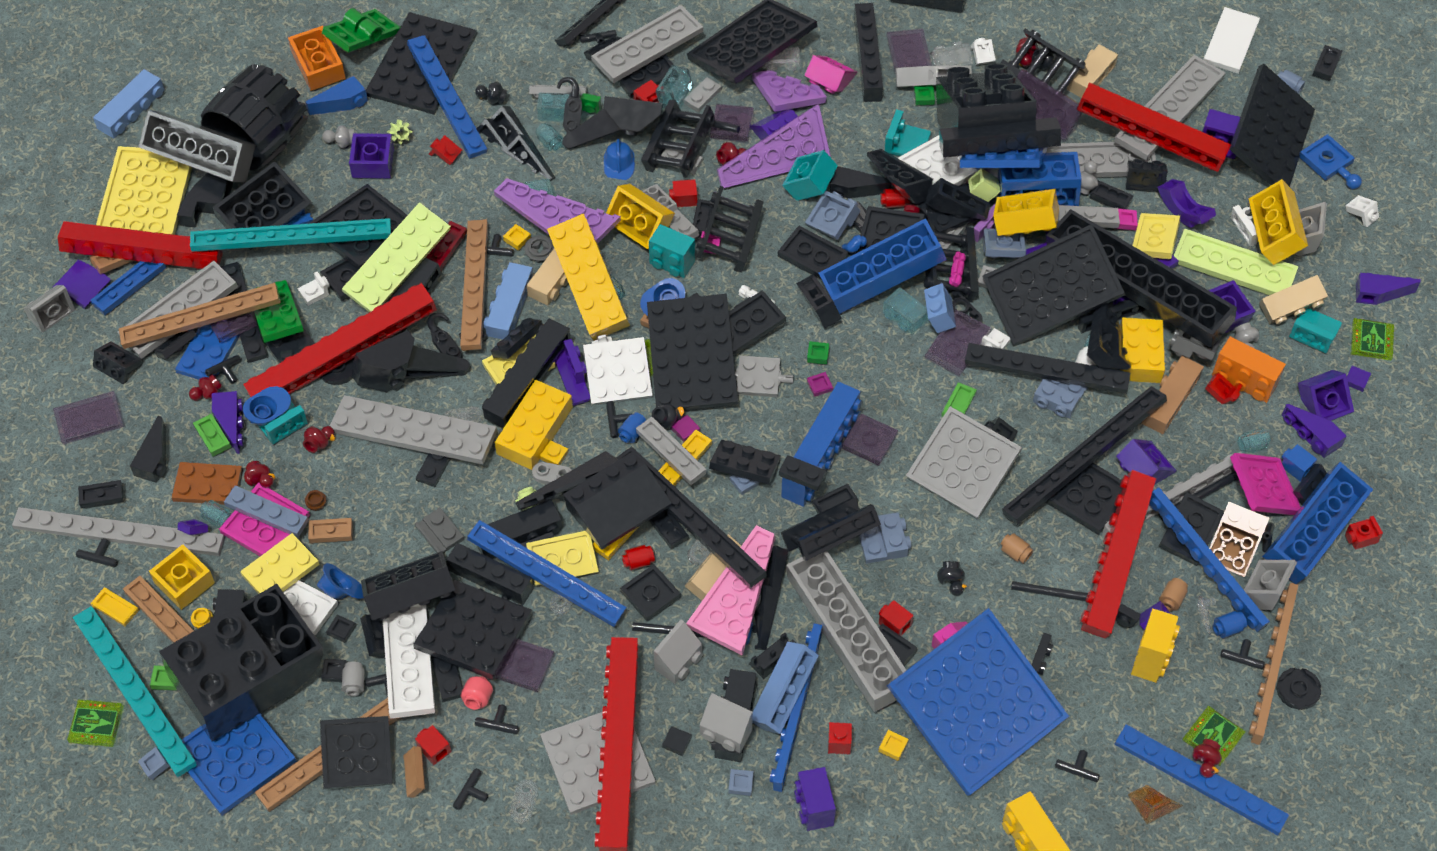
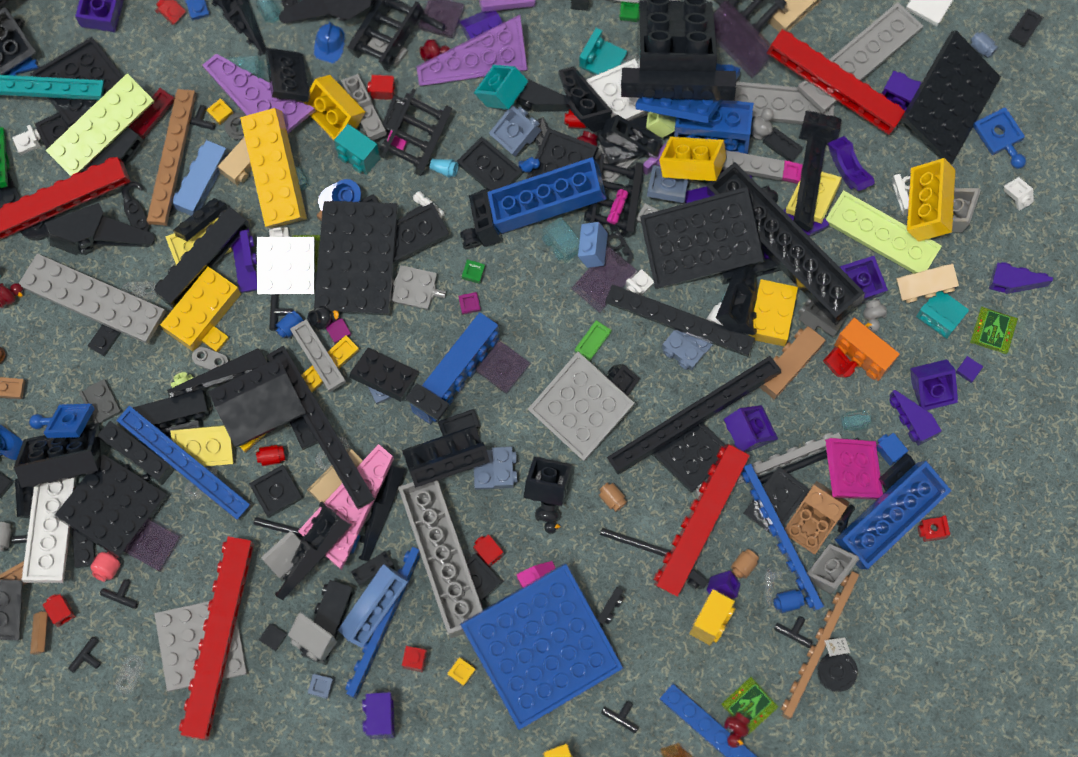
camera: 10 degrees right, 15 degrees up
(404, 552) = (67, 420): none -> blue plate
(585, 190) = (287, 75): none -> black plate
(716, 619) = (314, 545): none -> black wedge
(766, 259) = (444, 166): none -> medium azure cone
(808, 321) = (470, 238): none -> black wheel
(945, 539) = (547, 481): none -> black brick
(1149, 220) = (809, 181): none -> black plate
(1293, 660) = (837, 646): none -> white sticker

